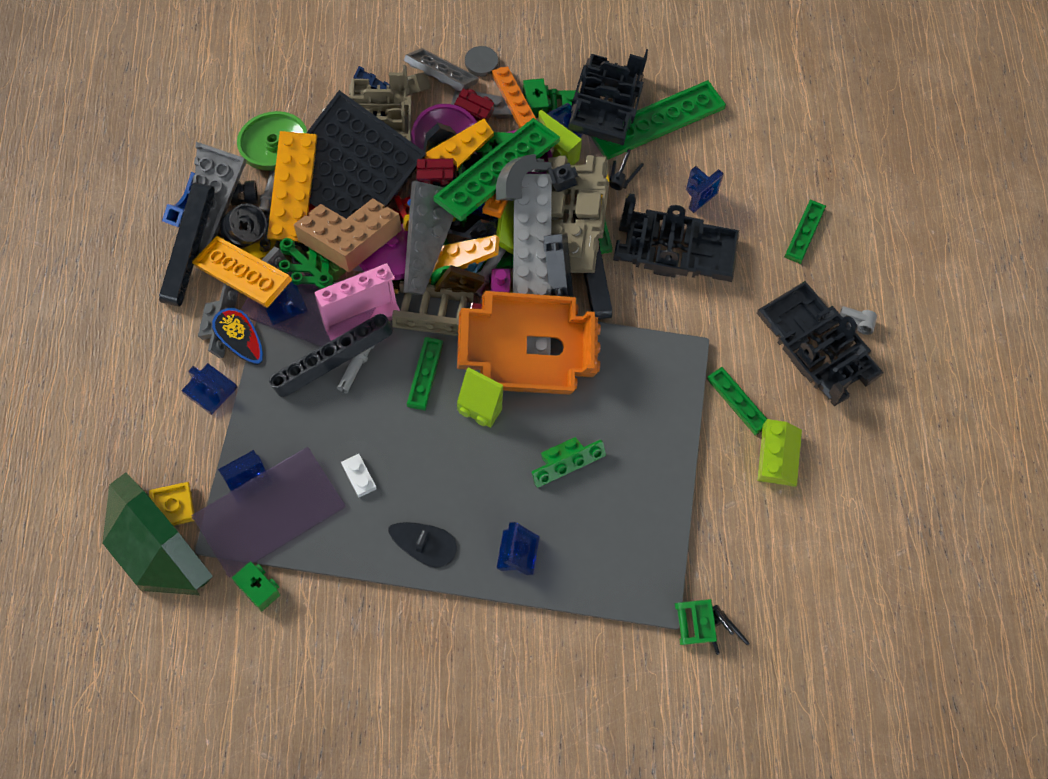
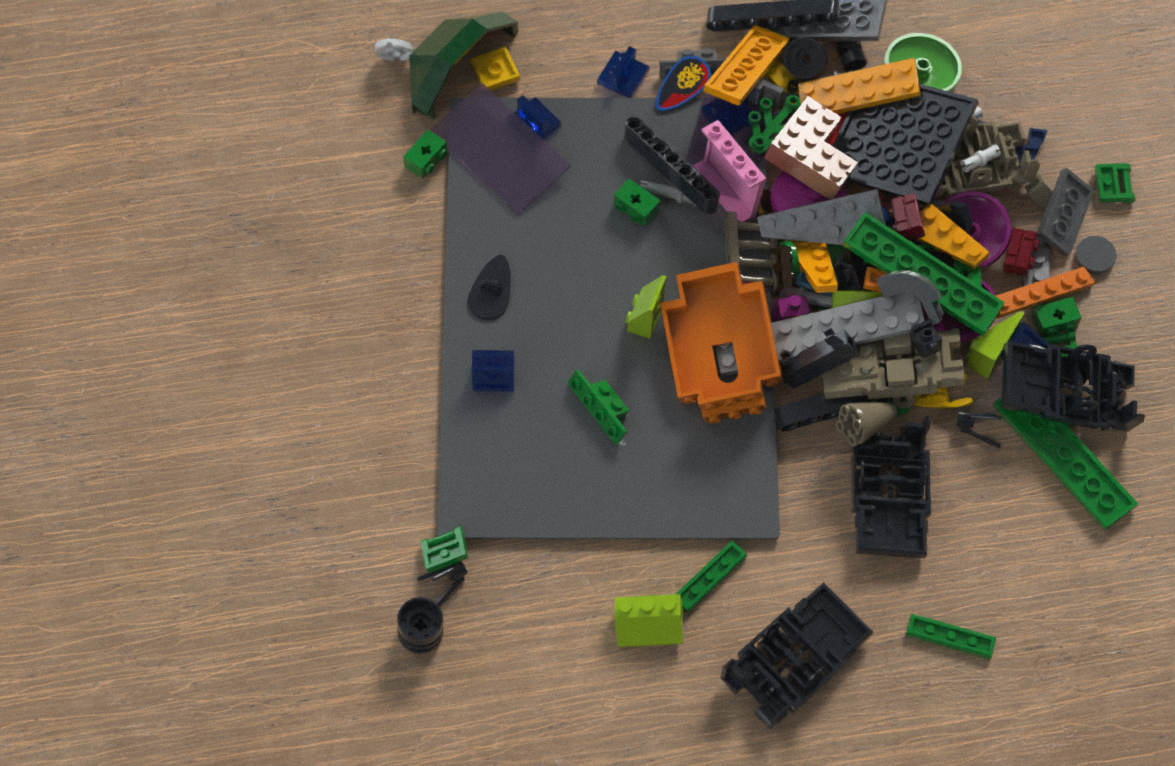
camera: 85 degrees right, 0 degrees up
(123, 601) = (393, 48): none -> white tile
(358, 475) = (551, 218): white plate -> none
(360, 395) = (636, 202): none -> green brick
(385, 110) = (980, 158): none -> white pin
(418, 33) = (1108, 183): none -> green plate
(425, 373) = (675, 259): green tile -> none
(624, 245) = (864, 420): none -> dark tan cone
(702, 187) = (971, 508): clear blue bracket -> none
(782, 645) = (418, 614): none -> black wheel
(865, 320) = (838, 704): light grey piece -> none

